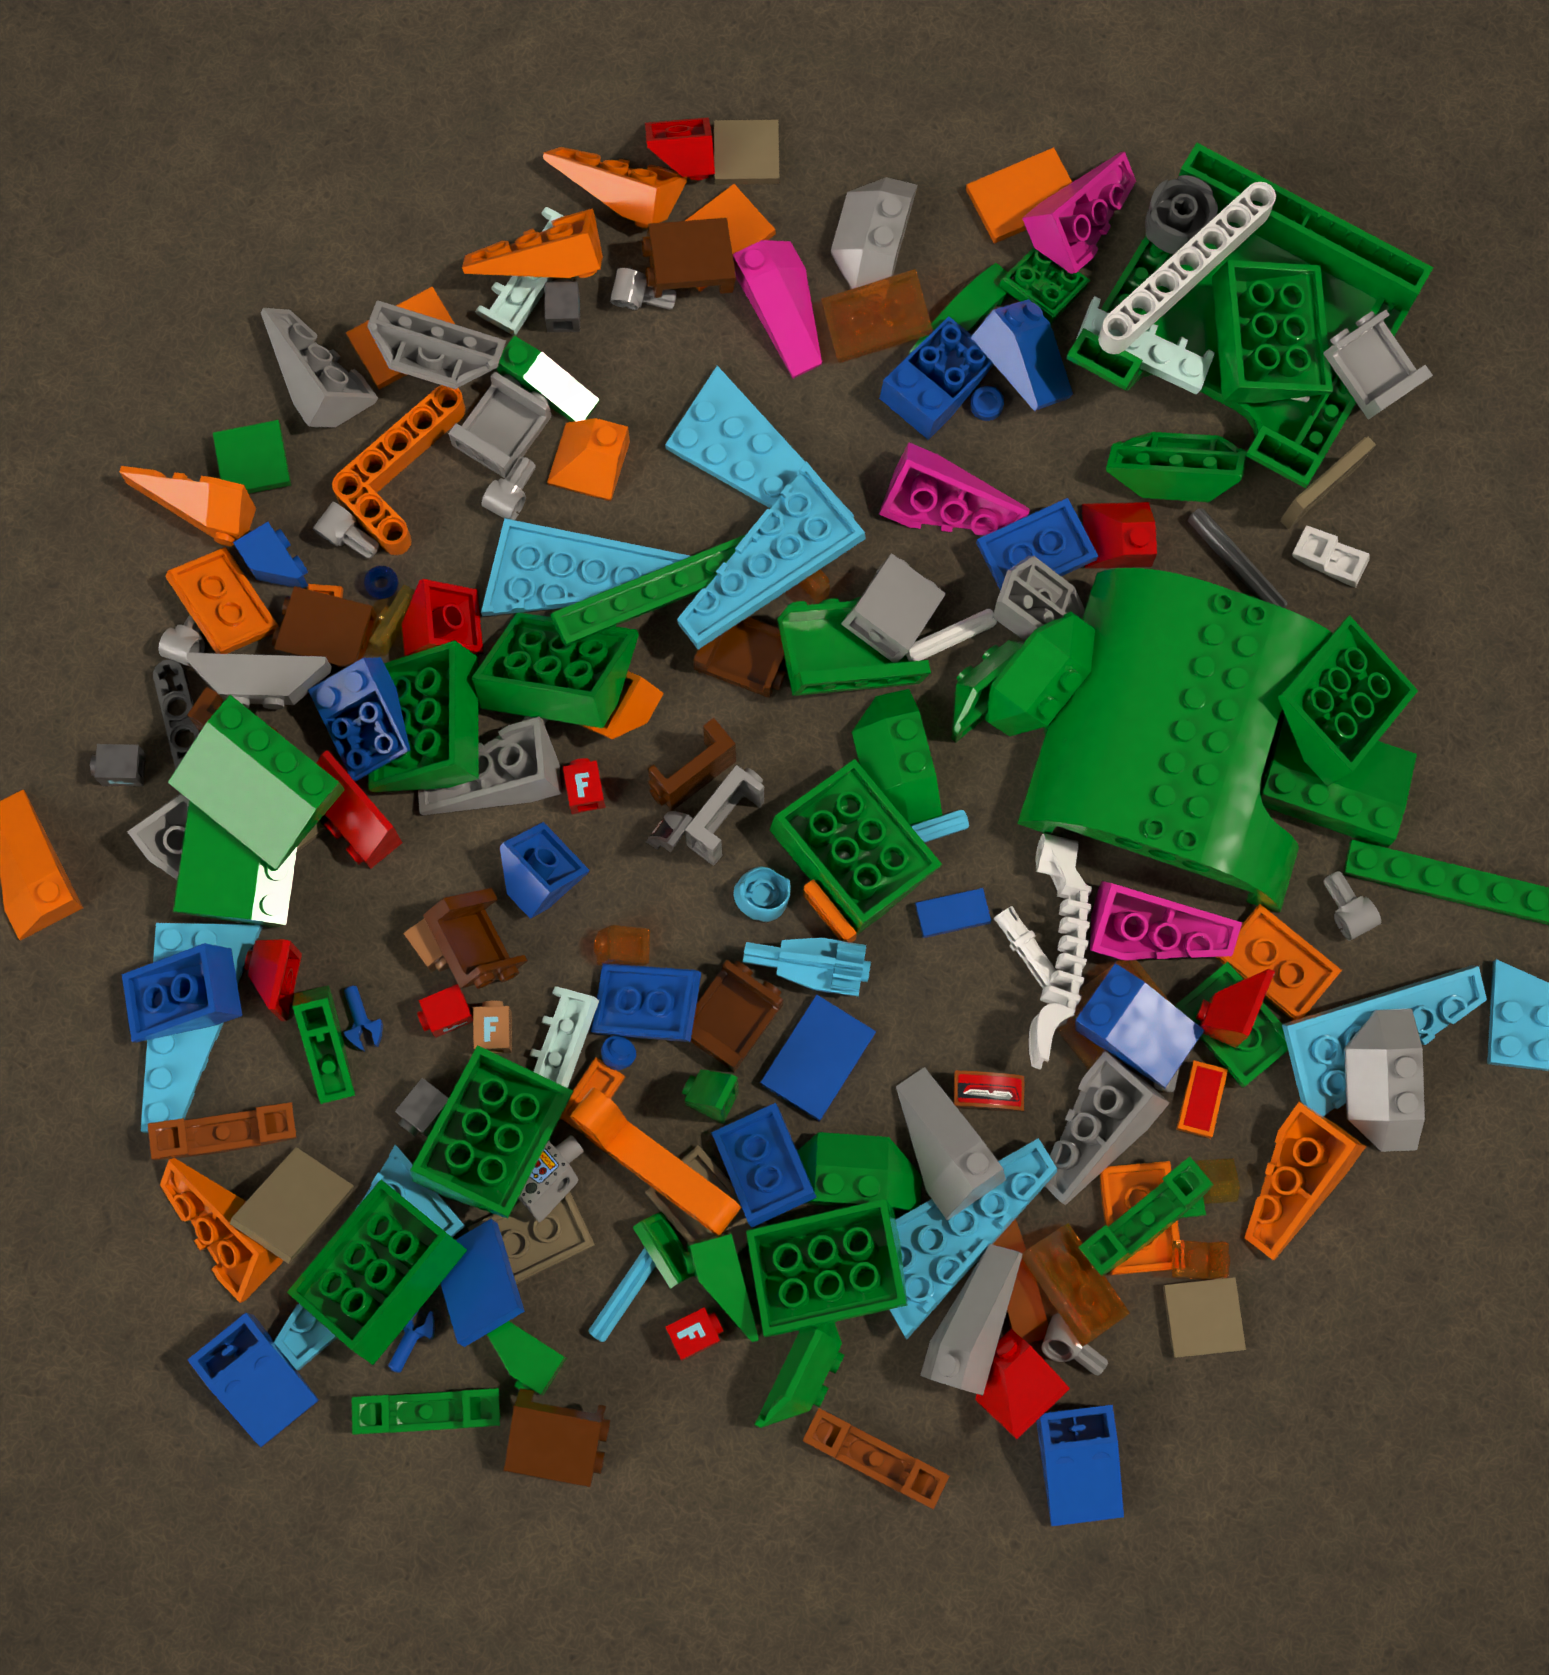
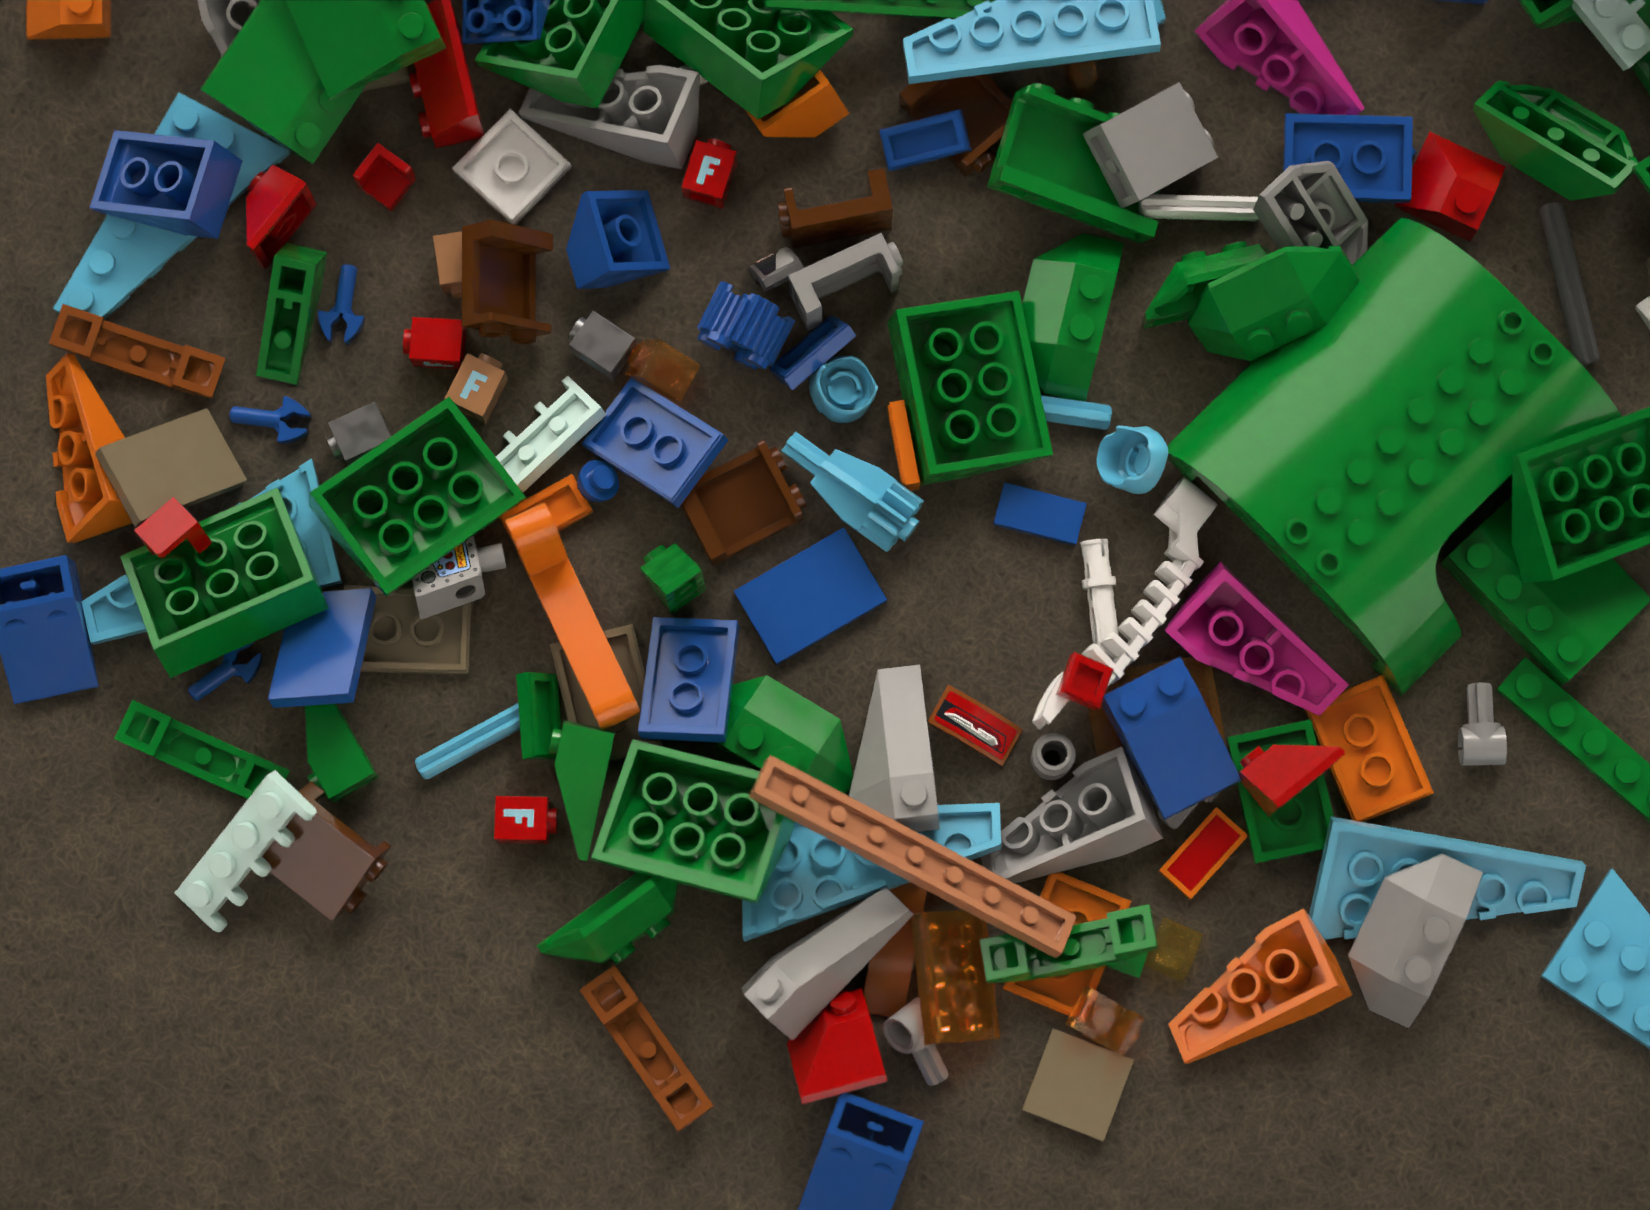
camera: 30 degrees right, 5 degrees up
(316, 1252) = (169, 528): none -> panel
(344, 908) = (384, 177): none -> red panel
(350, 1130) = (273, 419): none -> blue bar
(434, 854) = (512, 167): none -> white tile
(494, 1467) = (241, 849): none -> light aqua hinge
(568, 950) = (601, 344): none -> flat silver brick
(668, 884) = (744, 326): none -> blue brick
(727, 878) = (812, 352): none -> blue tile
(728, 685) = (925, 140): none -> blue tile
(1000, 838) = (1132, 458): none -> medium azure hair
(1000, 1210) = (912, 856): none -> nougat plate
(1057, 1016) = (1084, 681): none -> red tile
(1065, 1076) = (1056, 743): none -> light grey brick

